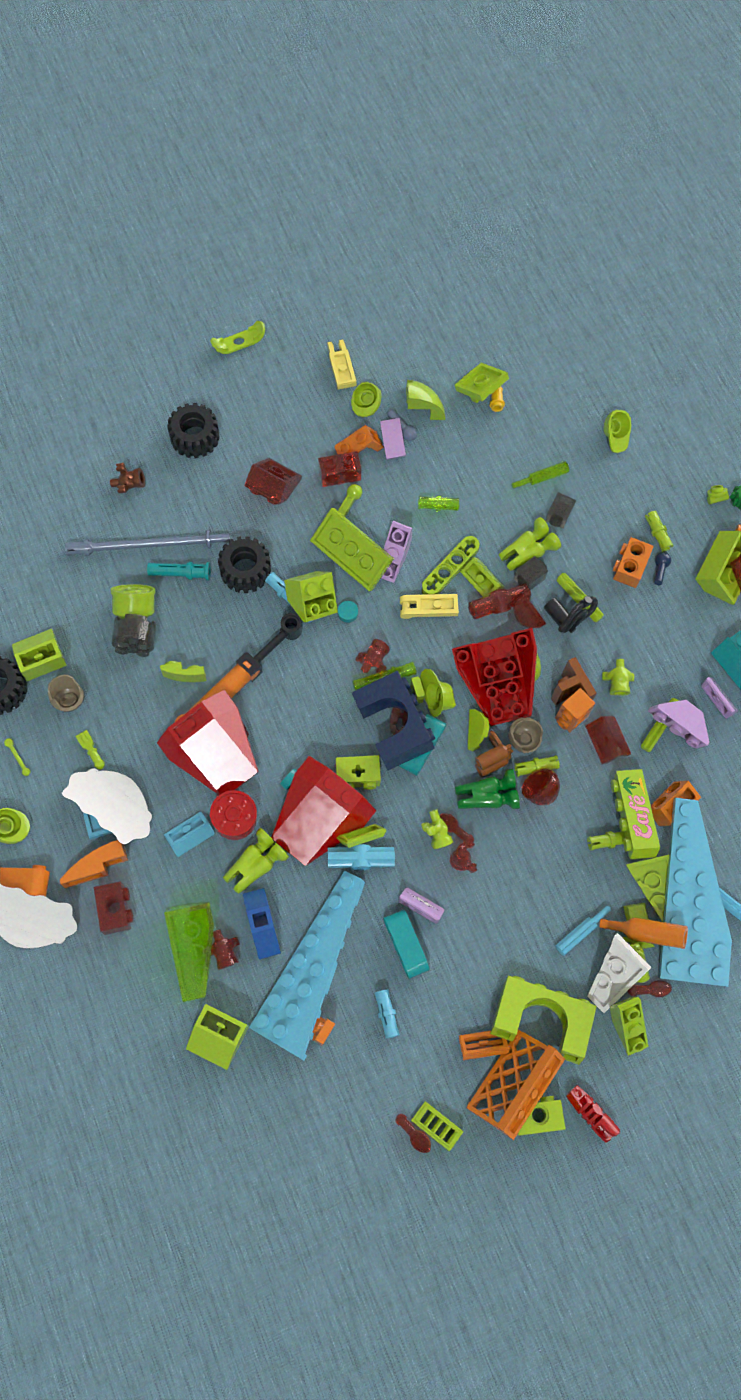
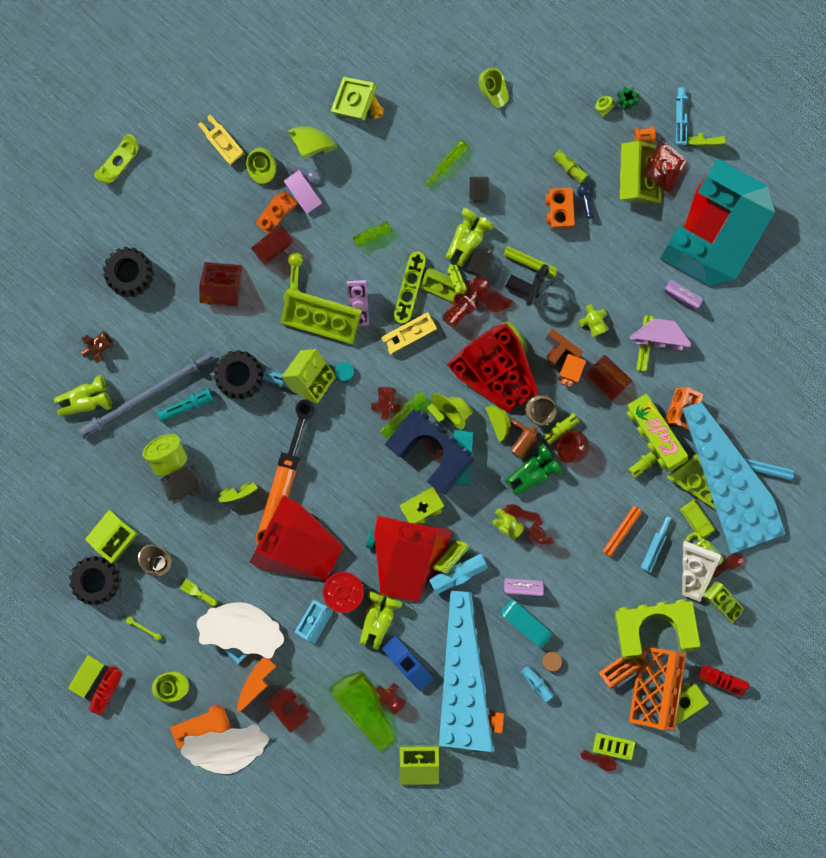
camera: 20 degrees left, 15 degrees up
(87, 519) = (81, 398): none -> lime piece
(414, 998) = (552, 661): none -> medium nougat tile
(500, 577) = (457, 279): none -> lime axle
(553, 898) = (622, 531): none -> orange axle
(650, 931) = (708, 524): orange piece -> none

